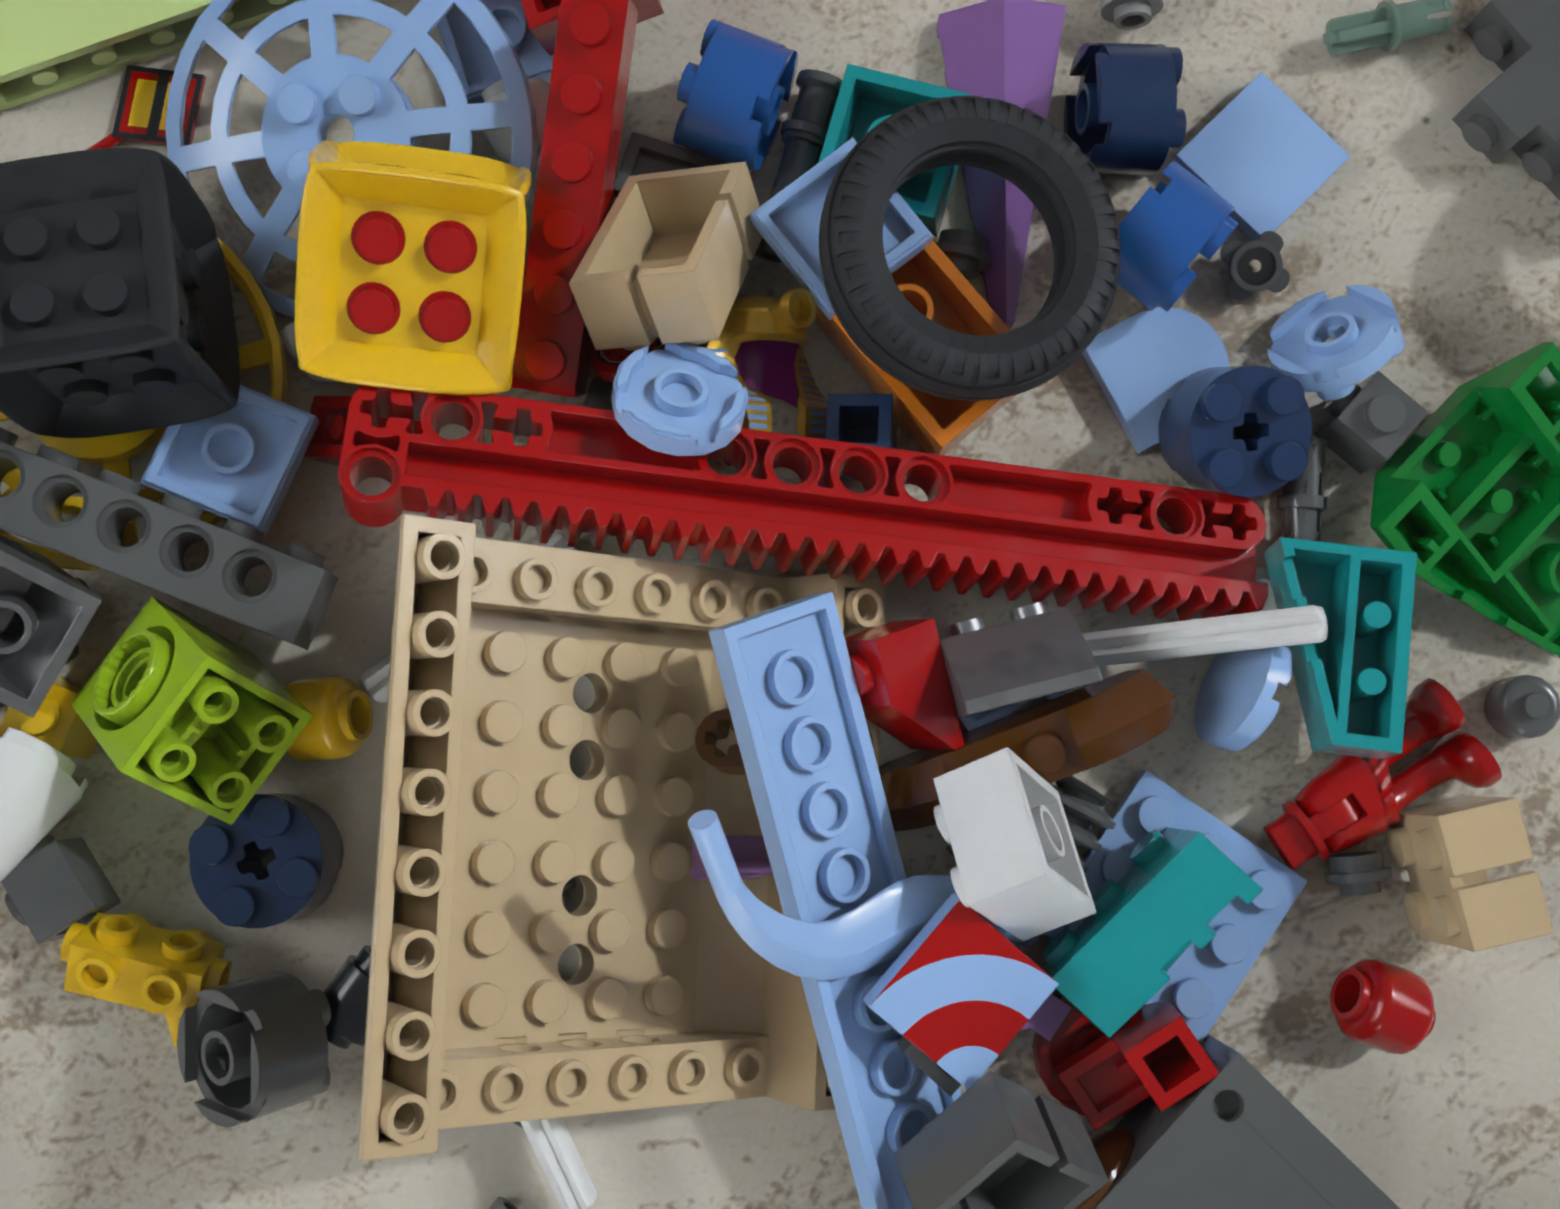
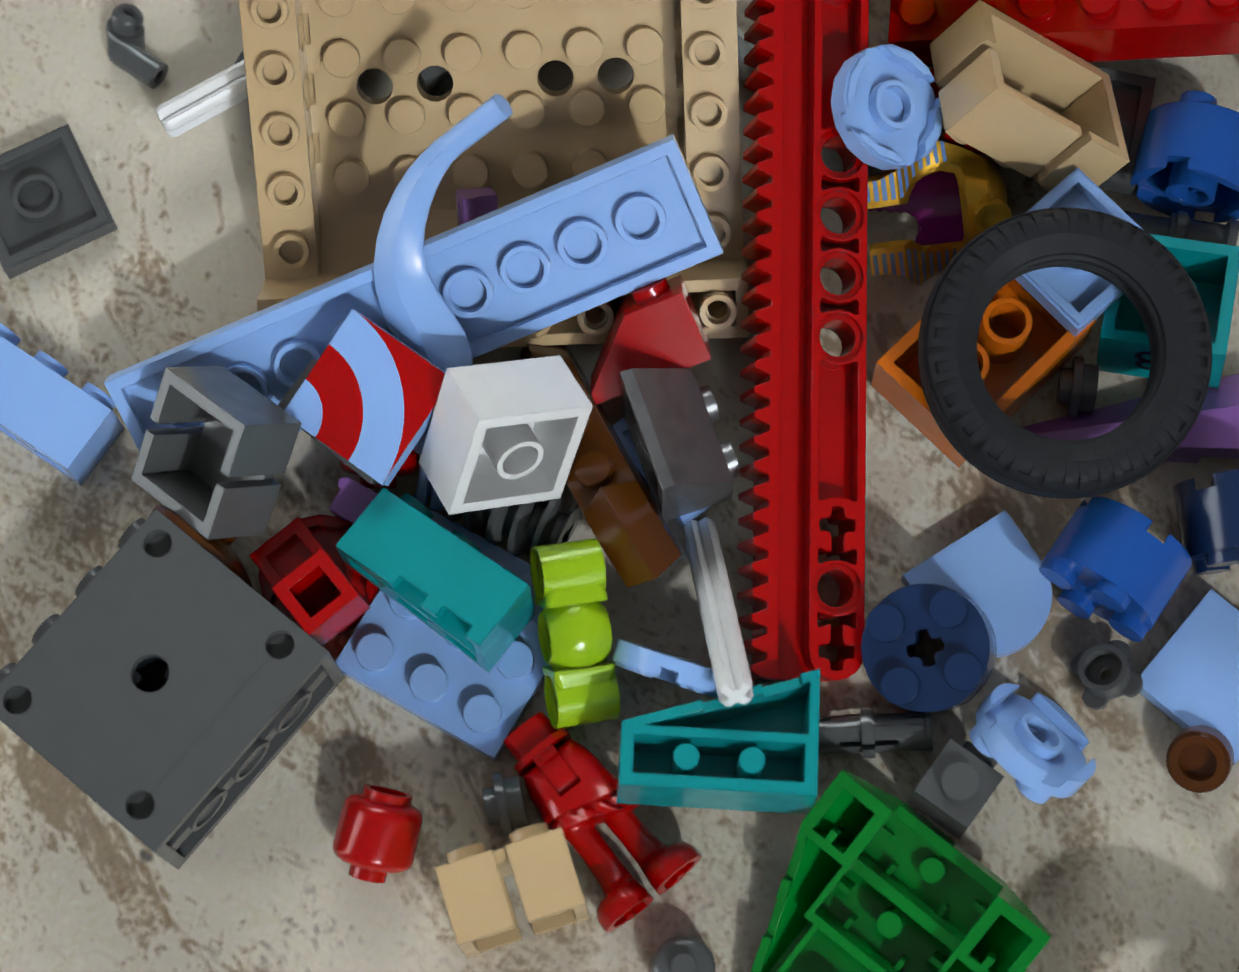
camera: 90 degrees right, 10 degrees down
(862, 420) = (892, 299): dark blue brick -> none
(1203, 787) = (574, 633): none -> lime piece
(1345, 188) = (1200, 759): none -> reddish brown tile

